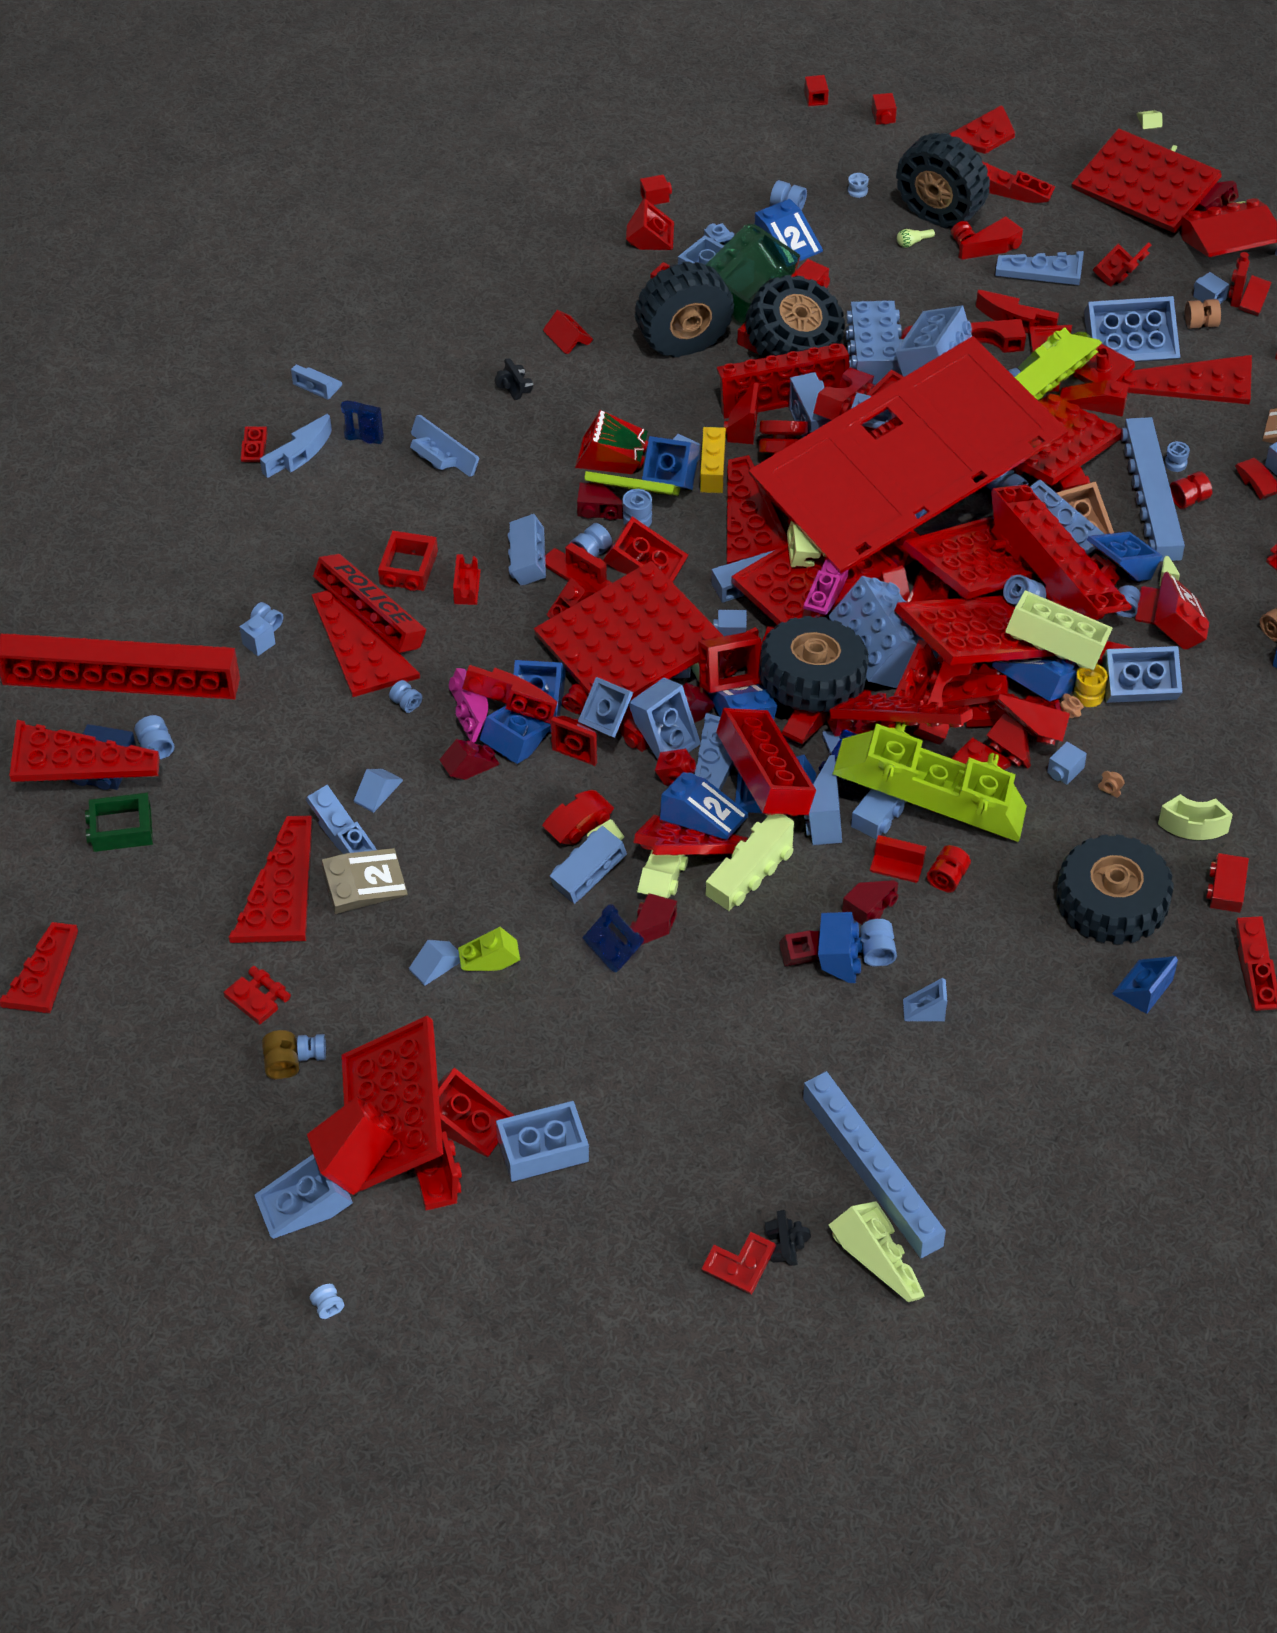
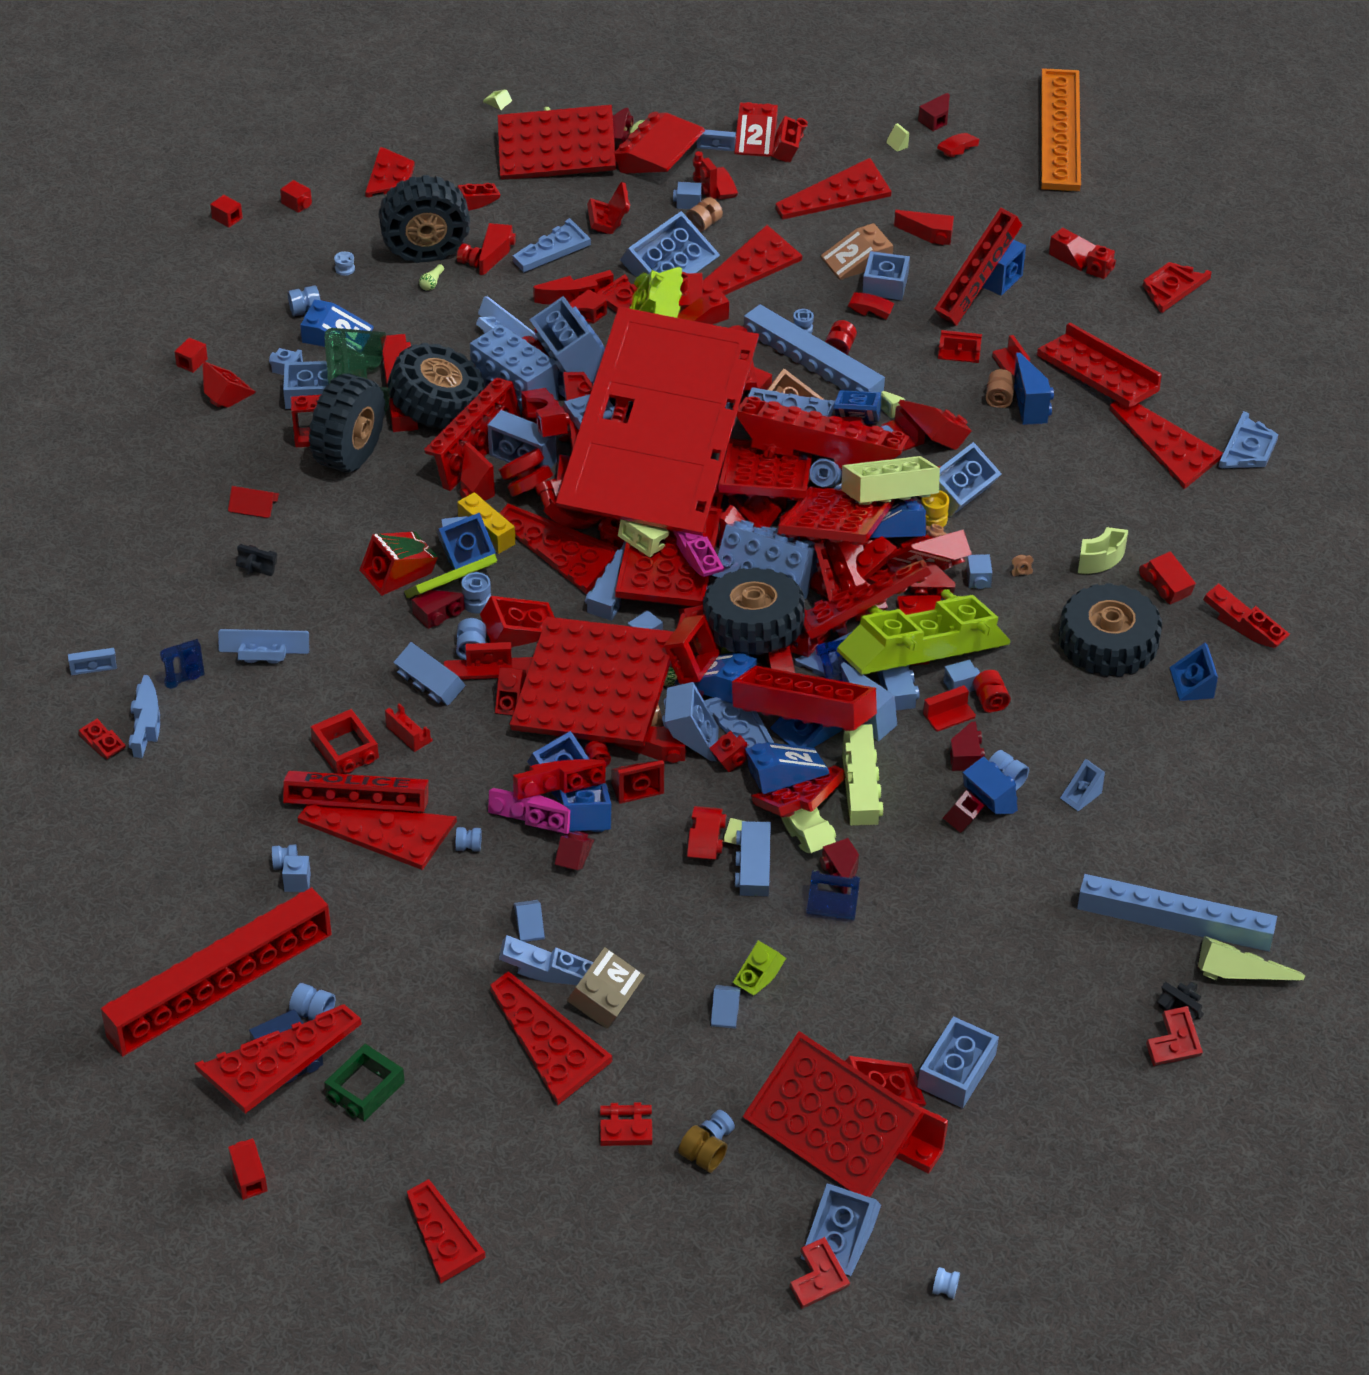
camera: 45 degrees left, 5 degrees down
(250, 1221) = (825, 1276): none -> red plate
(351, 1143) = (846, 1157): red slope -> none
(605, 707) = (649, 737): medium blue slope -> none
(913, 304) = (494, 314): none -> light blue bracket
(937, 836) = (960, 674): none -> medium blue brick

